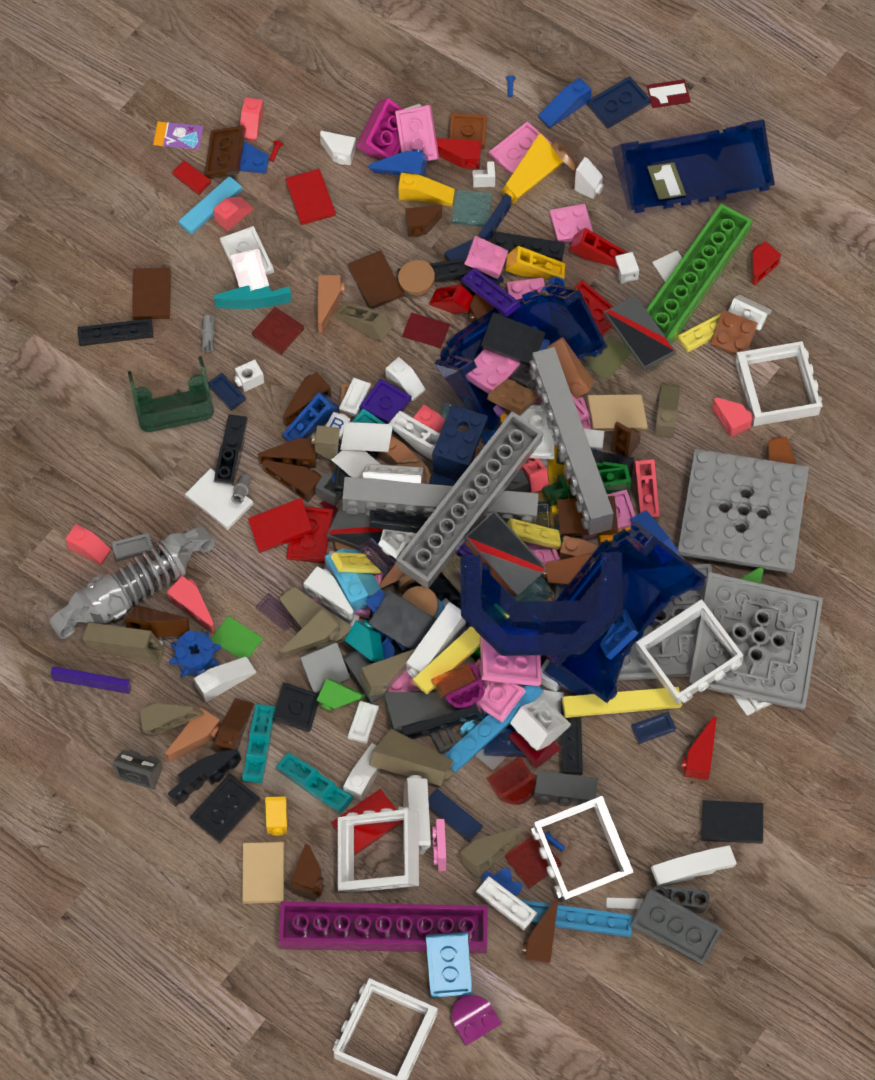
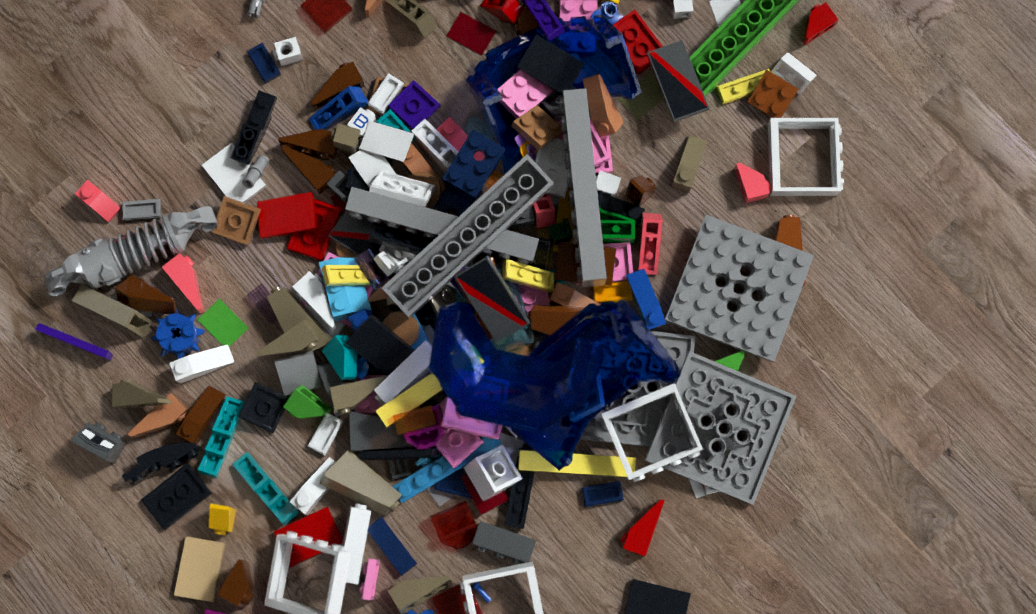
camera: 10 degrees right, 15 degrees up
(176, 408) = (206, 73): clear green windscreen -> none
(232, 538) = (236, 220): none -> medium nougat plate
(403, 377) = (438, 84): white slope -> none
(609, 409) = (638, 158): tan tile -> none

